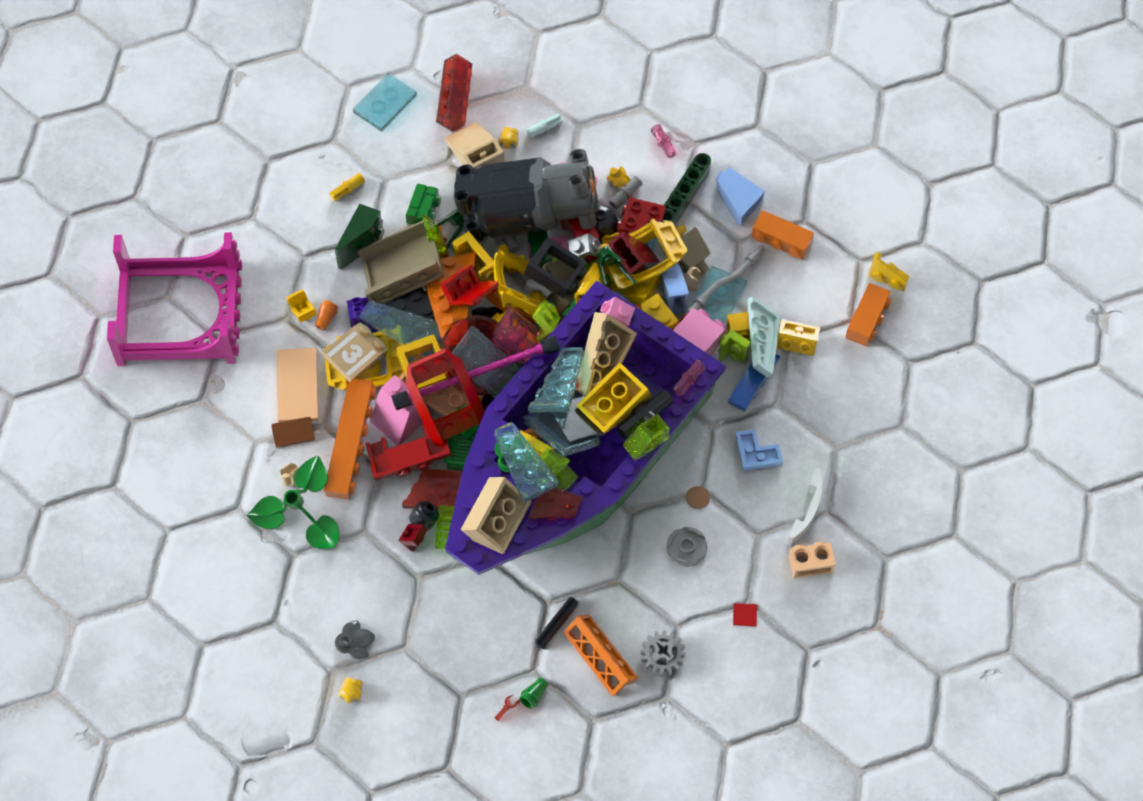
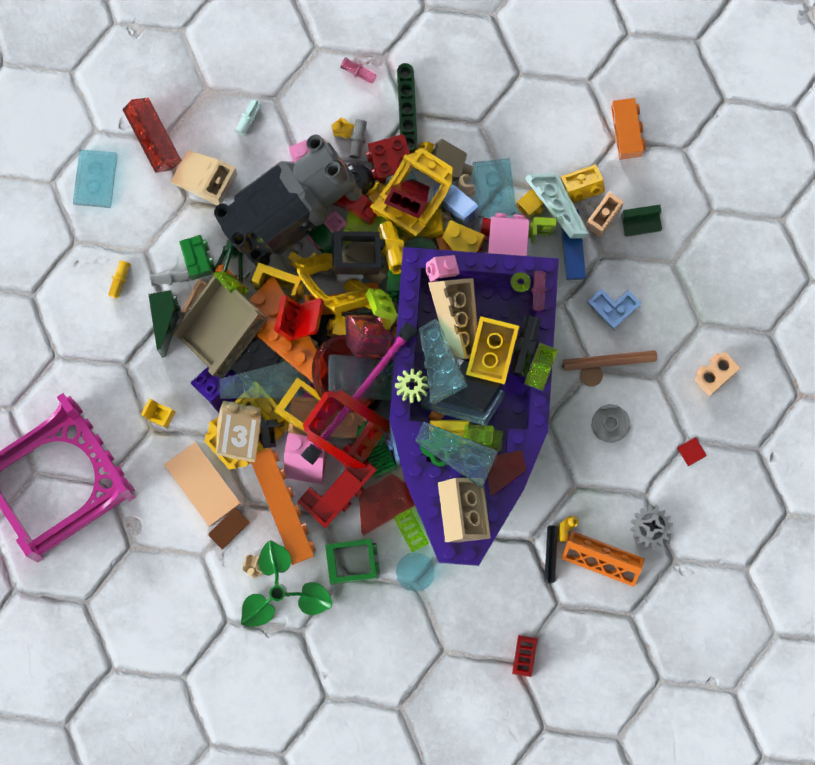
camera: 30 degrees left, 15 degrees up
(325, 314) = (183, 407): orange cone -> none
(351, 690) = (428, 715): yellow arm -> none
(357, 639) = (402, 669): dark grey plate -> none
(358, 513) = (332, 570): none -> green window
(380, 371) = (267, 434): none -> black bracket
(388, 209) = (169, 277): none -> light grey pin
(413, 536) = (391, 556): dark red bracket -> none
(424, 514) = (388, 534): black head -> none
(426, 565) = (415, 572): none -> clear light blue tile
(466, 709) = (521, 672): none -> red slope
(506, 707) = (559, 647): clear red hand -> none
(508, 136) = (225, 147): yellow arm -> none
(522, 388) = (406, 382): none -> yellowish green gear
(532, 695) = (573, 625): green cone -> none
(584, 246) = (363, 216): light grey bracket -> none
(586, 607) = (565, 526): none -> yellow arm
(609, 258) = (392, 215): dark green plant -> none
(677, 368) = (517, 287): none -> clear neon green plate
(722, 493) = (609, 360): none -> nougat axle
(739, 194) = (453, 83): light blue slope -> none
(750, 260) = (487, 202): light grey bar -> none
(782, 235) = (512, 98): orange brick -> none
(798, 370) = (604, 214): none -> light nougat brick
(800, 527) = (681, 308): white slope -> none
(831, 395) = (641, 220): none -> dark green panel
(888, 273) = (625, 81): yellow wing -> none

